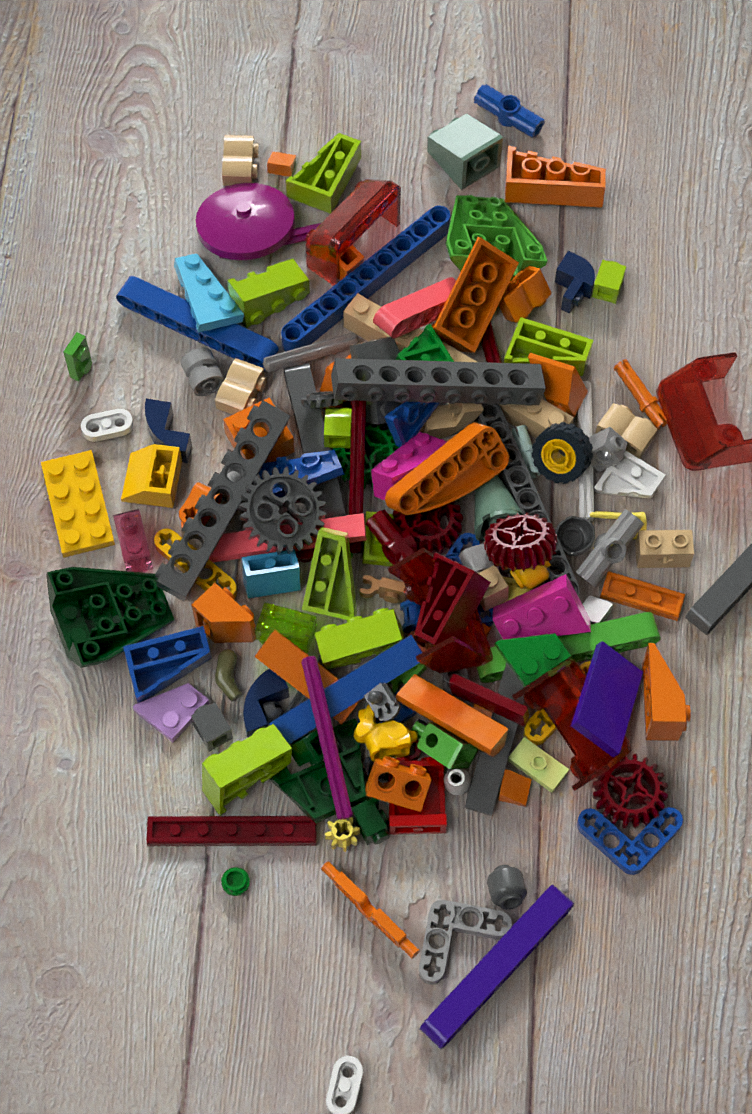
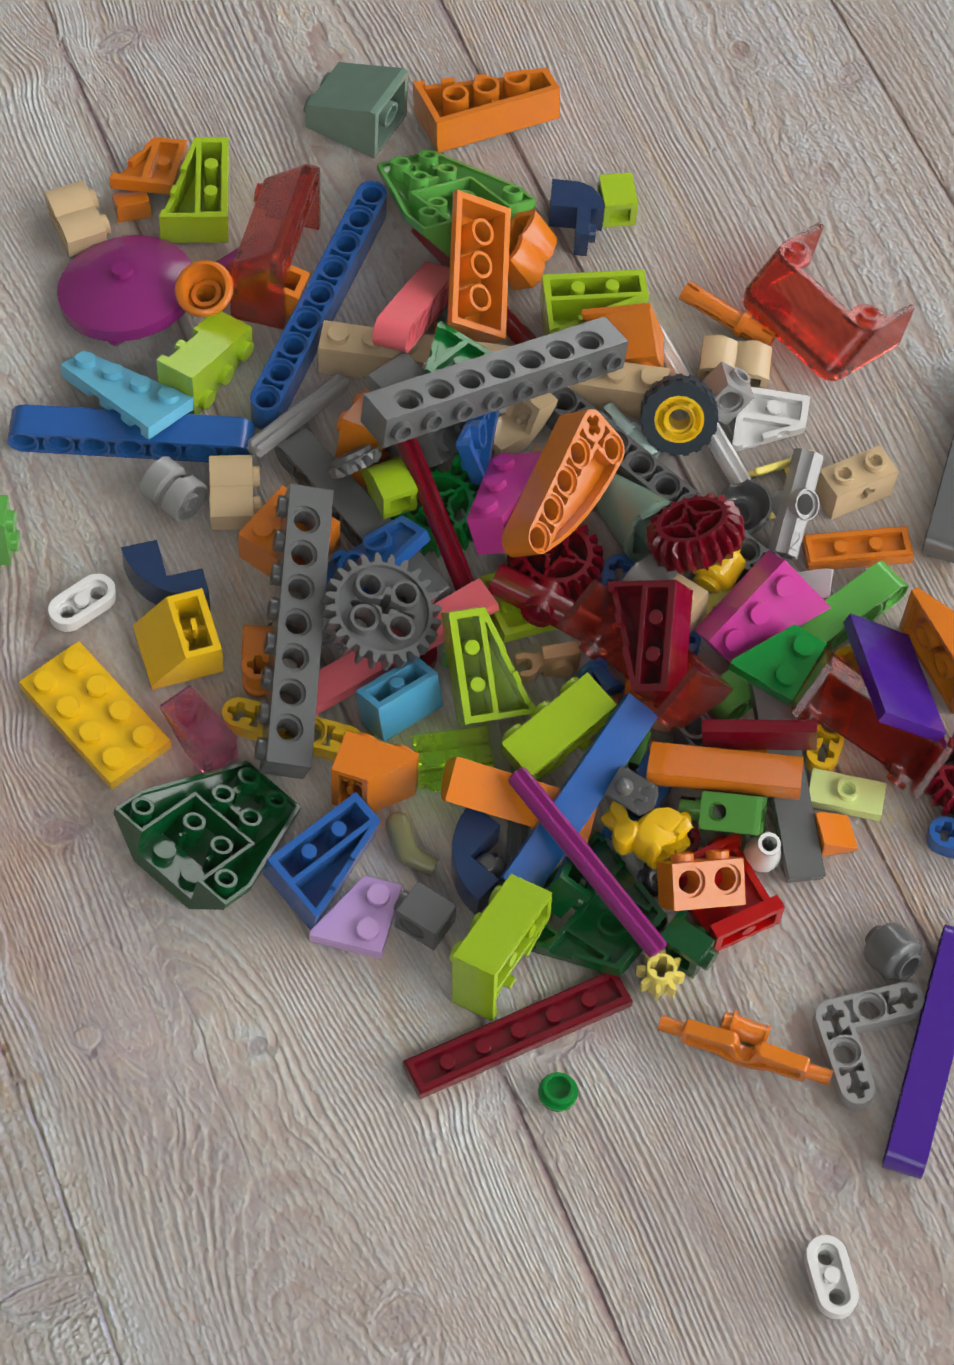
camera: 30 degrees left, 5 degrees down
(286, 241) = (204, 288): none -> orange hat
(305, 142) = (153, 168): none -> orange wing
(378, 895) = (747, 1029): none -> orange pin
(509, 111) = (385, 43): blue piece -> none

